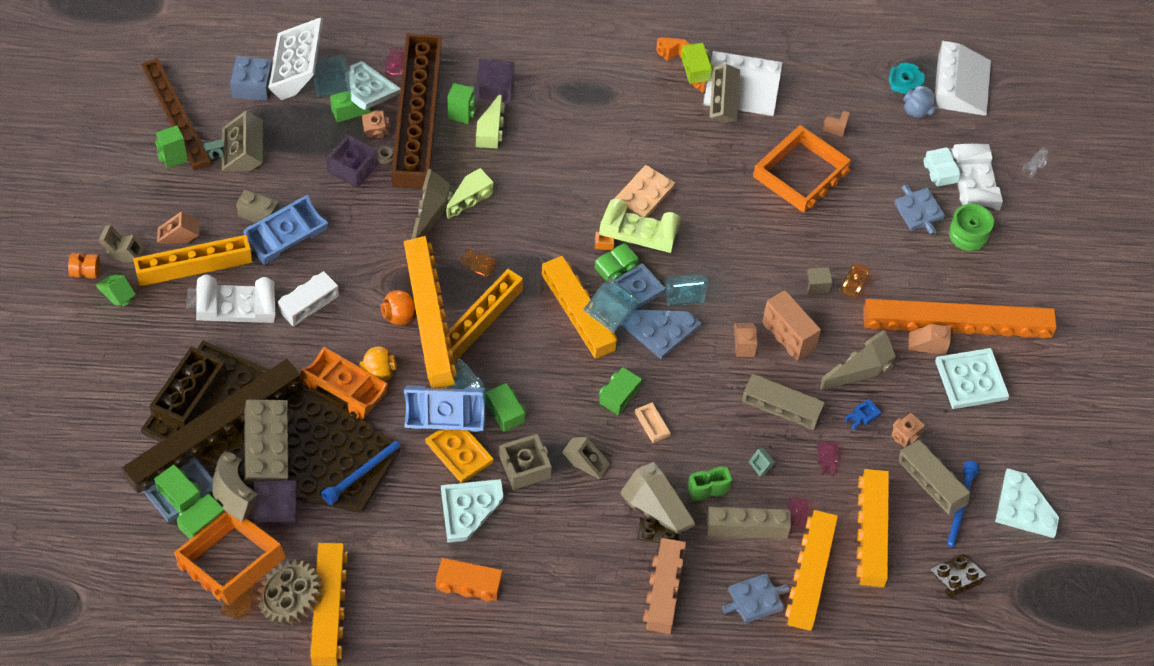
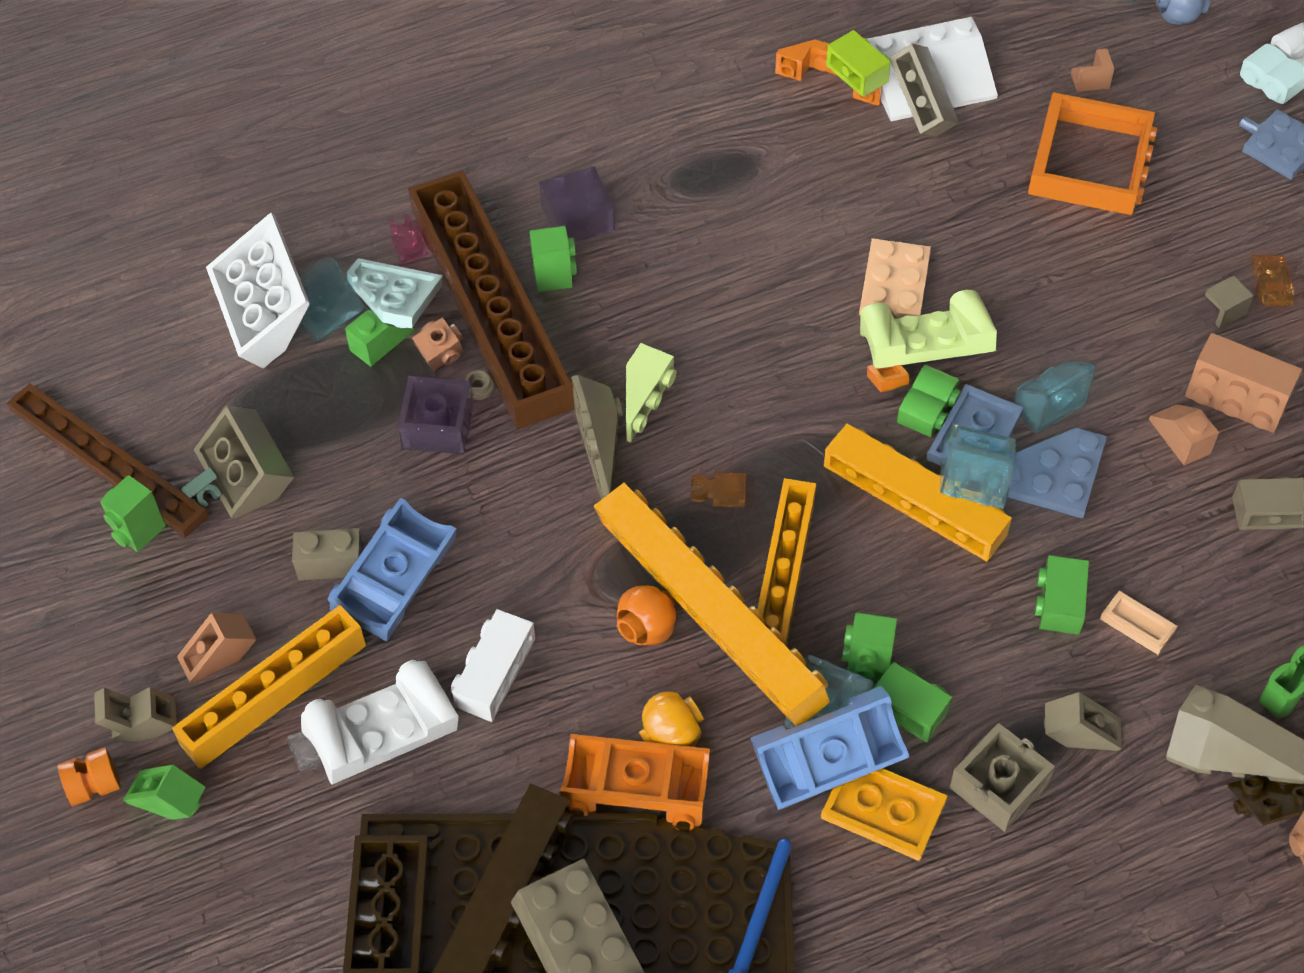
camera: 20 degrees left, 0 degrees up
(251, 78) = (200, 353): sand blue brick -> none
(468, 507) = (957, 896): light aqua plate -> none
(488, 125) = (612, 281): yellowish green slope -> none
(499, 369) = (869, 645): none -> bright green brick

